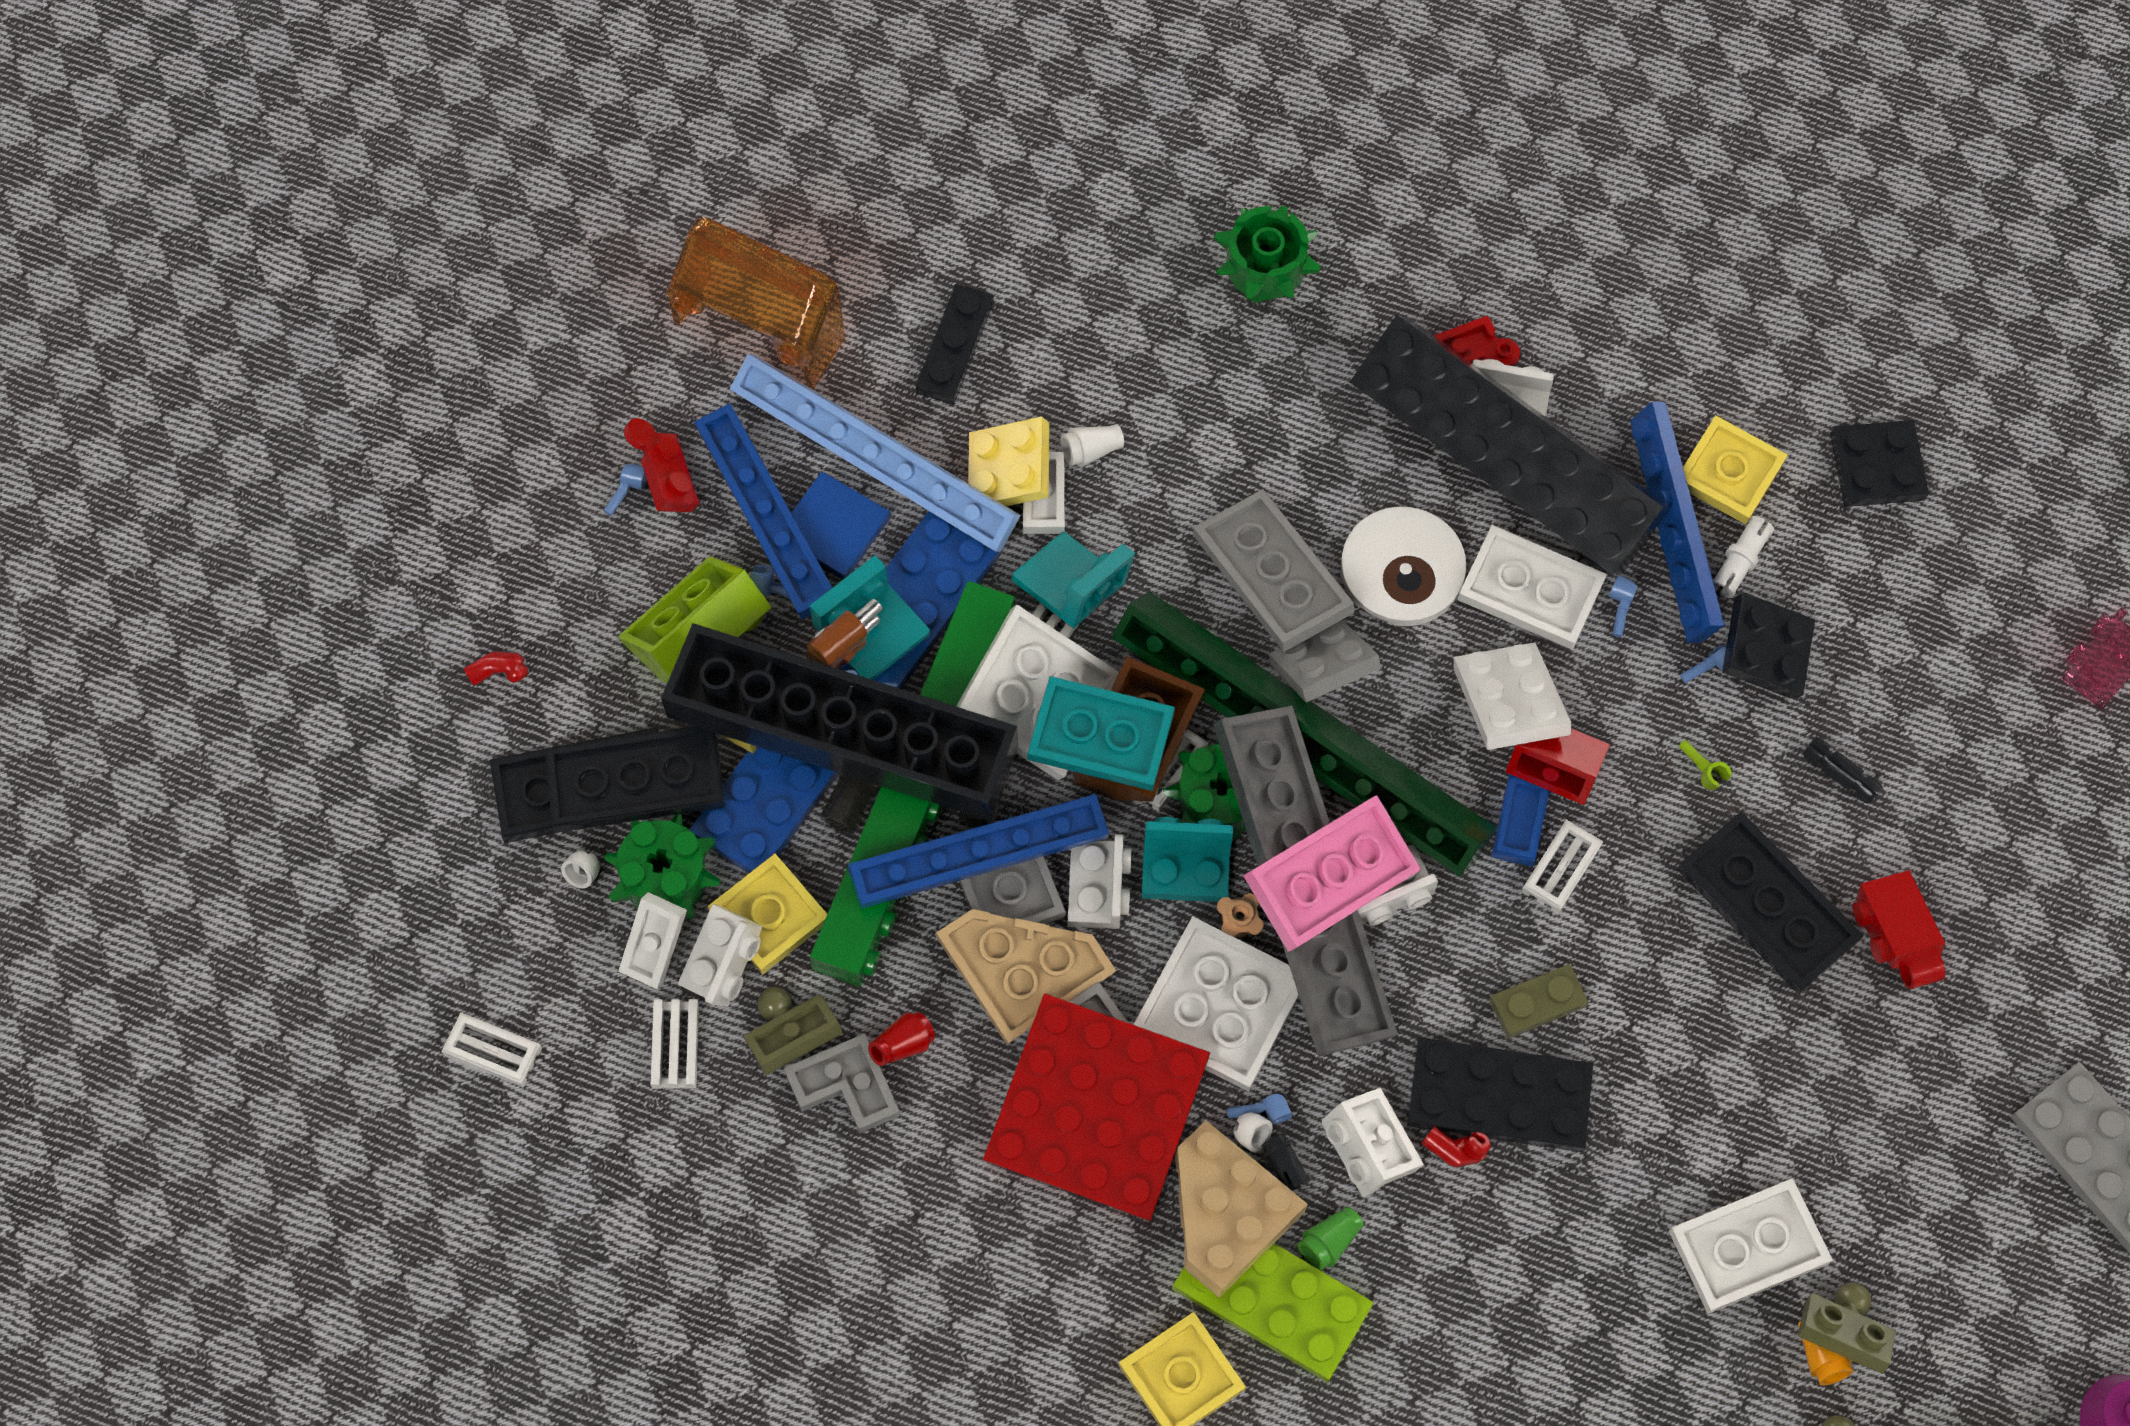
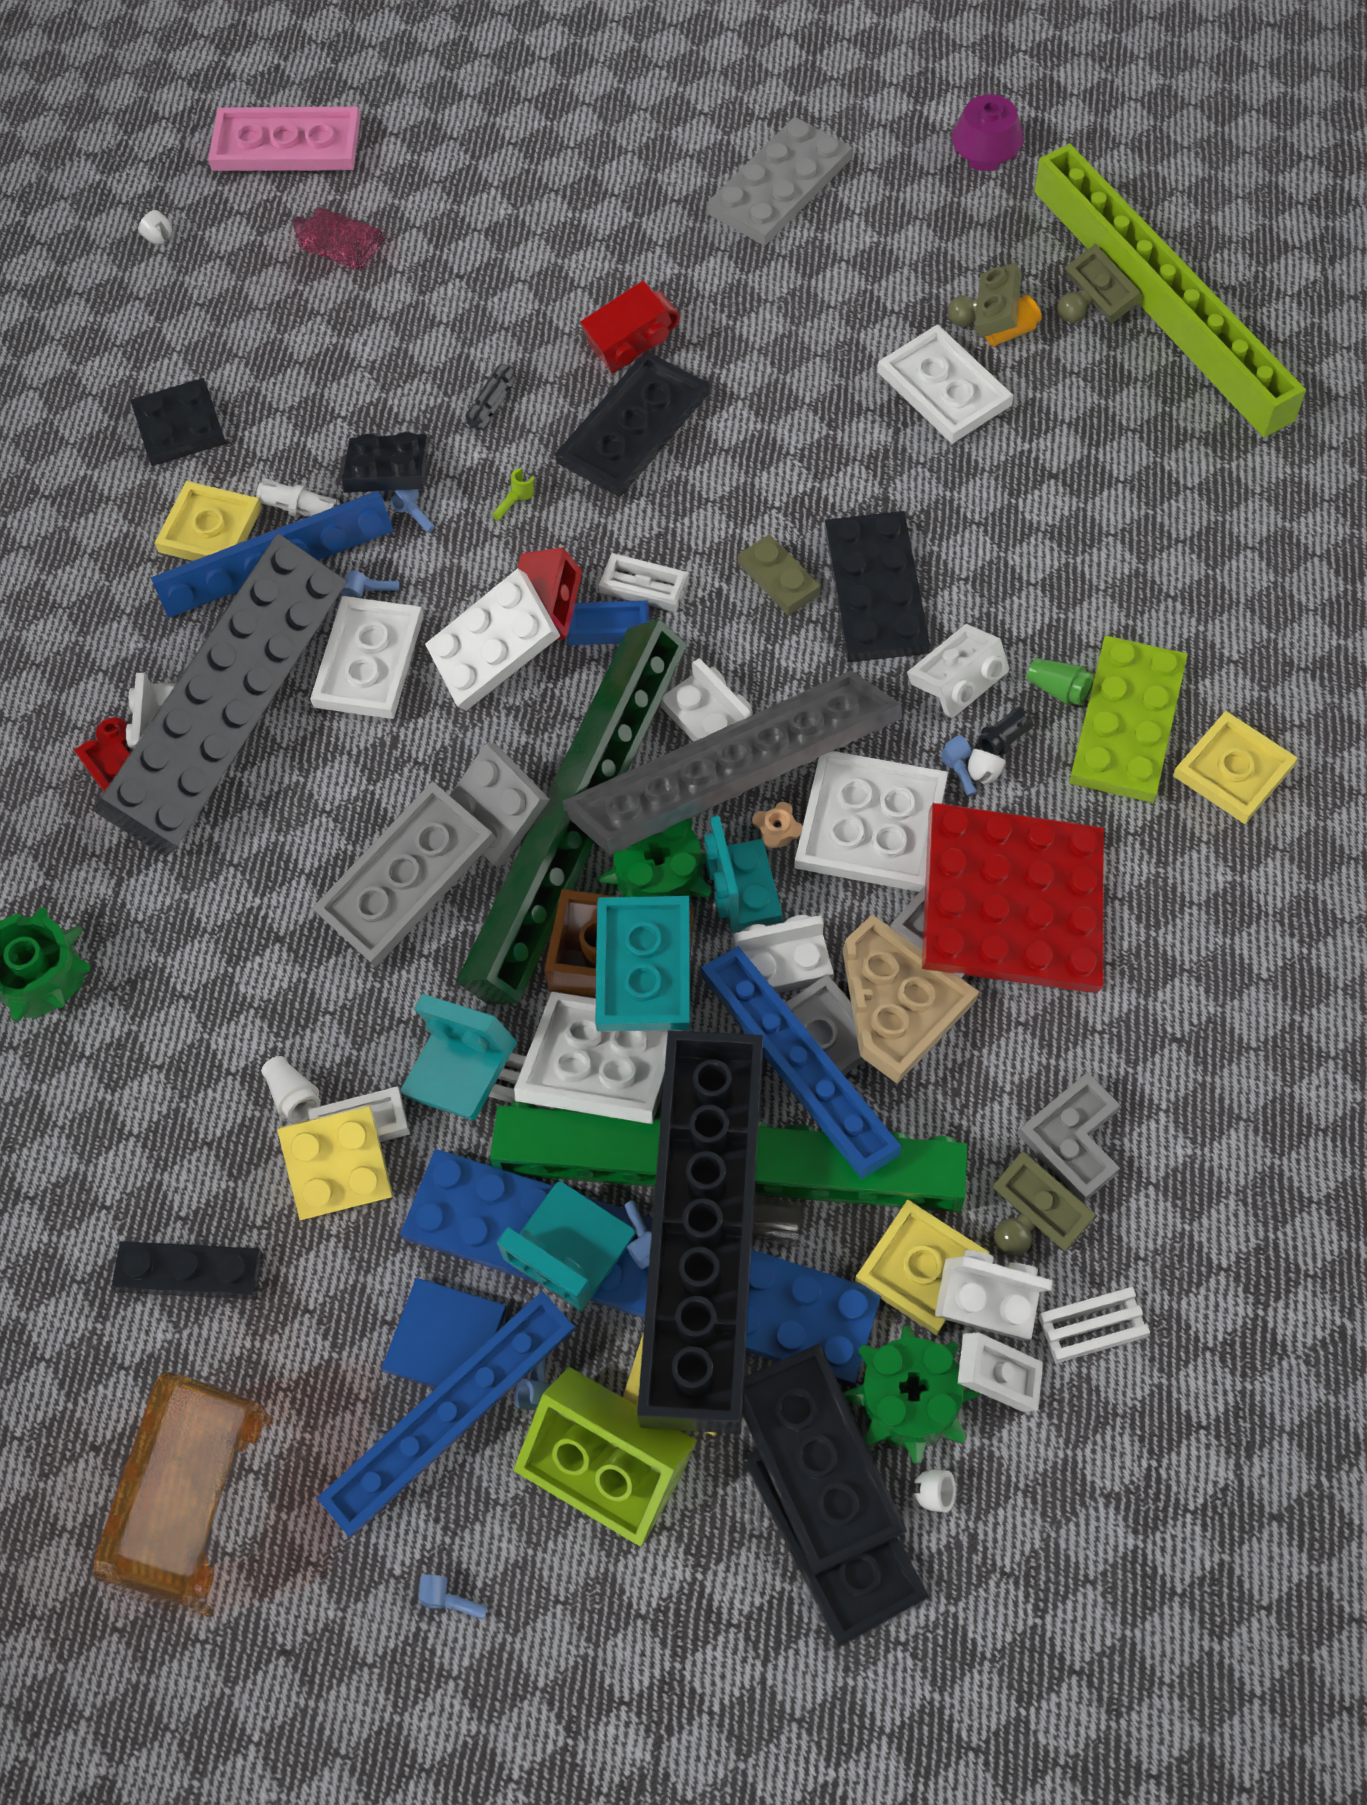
camera: 100 degrees left, 5 degrees down
(494, 663) = (714, 1679): red arm -> none
(525, 1064) = (1171, 1569): white tile -> none
(663, 467) = (415, 1556): red hinge -> none
(844, 636) = (606, 1250): dark orange piece -> none
(875, 452) = (345, 1318): light blue plate -> none
(902, 1039) = (1012, 1089): red cone -> none
(1228, 1208) = (1072, 758): tan plate -> none
(1332, 873) = (729, 728): bright pink plate -> none
(1403, 566) = (366, 770): white tile -> none
(1460, 1151) = (940, 603): red arm -> none

